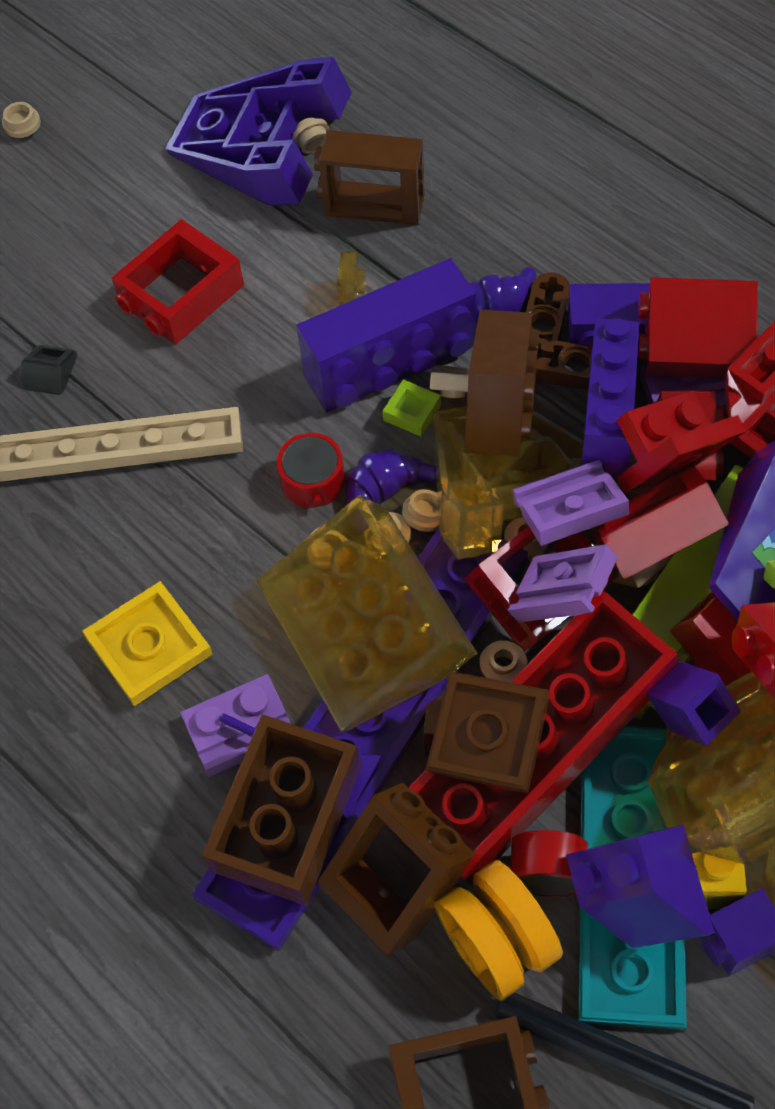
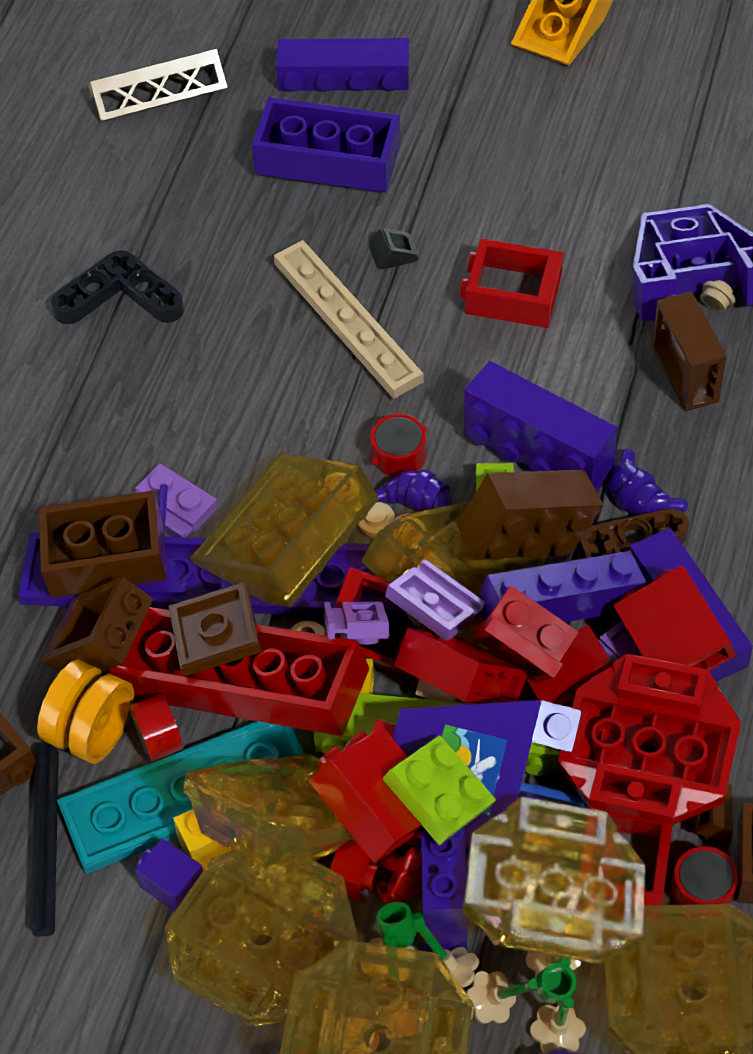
camera: 60 degrees right, 5 degrees down
(20, 120) = (603, 112): tan plate -> none
(147, 643) = (201, 418): yellow plate -> none
(350, 278) = (587, 386): clear yellow plate -> none
(643, 888) = (150, 769): dark purple slope -> none
(694, 703) = (304, 743): dark purple brick -> none

